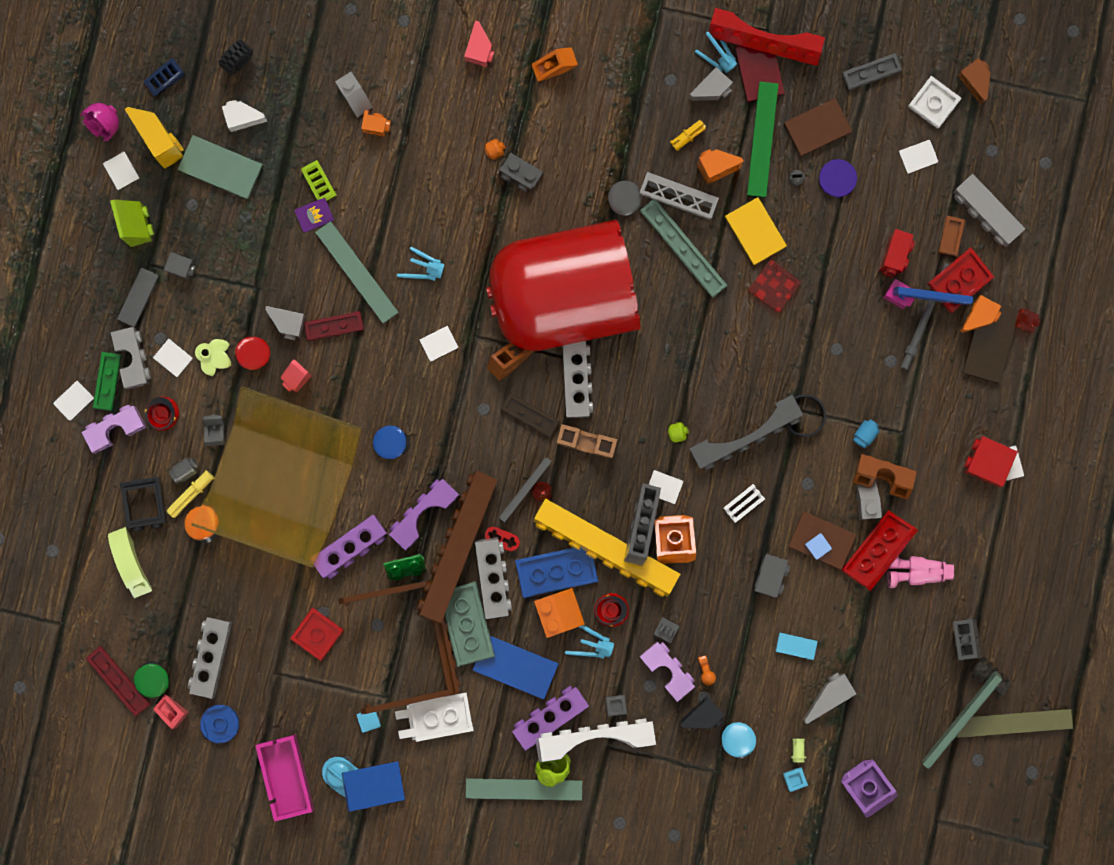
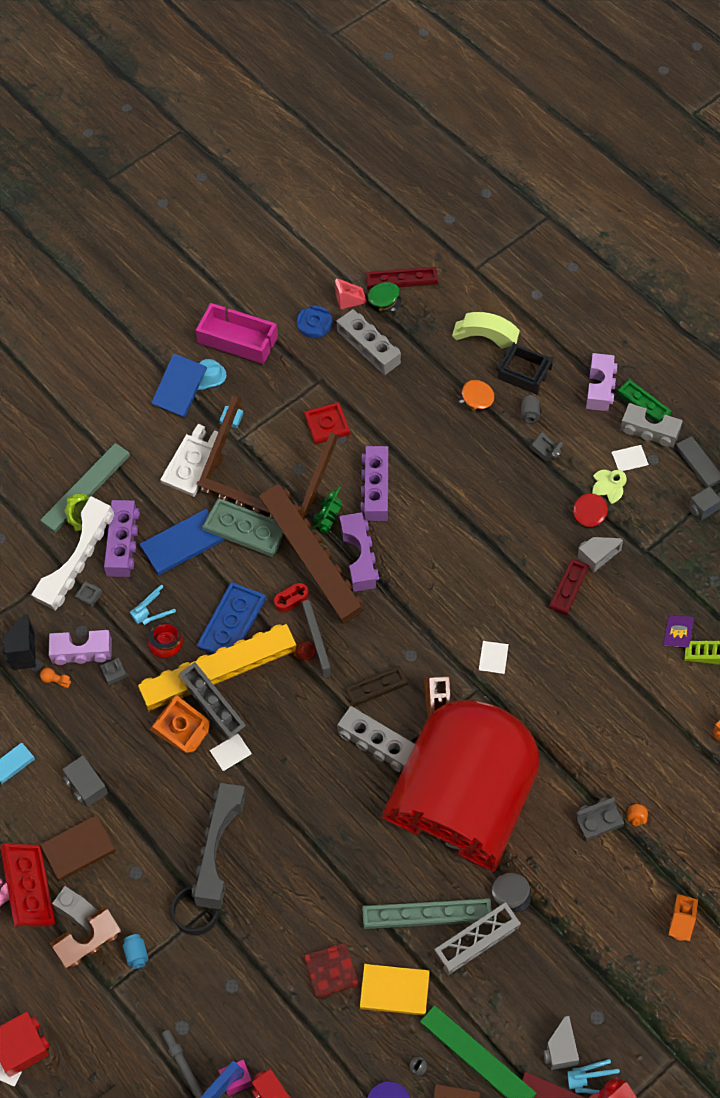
camera: 130 degrees right, 25 degrees down
(73, 400) = (645, 372): white sticker -> none
(162, 413) = (589, 422): red piece -> none
(190, 494) = (509, 409): light yellow axle -> none
(280, 477) = (464, 461): clear yellow piece -> none
(295, 376) = (546, 529): coral slope -> none
(357, 272) = (603, 632): sand green tile -> none
(391, 442) = (436, 566): blue piece -> none
(434, 267) = (561, 691): medium azure plant -> none
(492, 608) = (292, 571): light grey brick -> none
(559, 612) = (196, 596): orange slope -> none
(586, 442) = (306, 719): medium nougat arch -> none
(678, 432) = (267, 795): lime piece -> none
(688, 135) = (530, 991): yellow axle -> none
(717, 164) = (482, 991): orange slope -> none
(731, 513) = (163, 789): white tile -> none
(818, 546) = (75, 836): light blue tile -> none

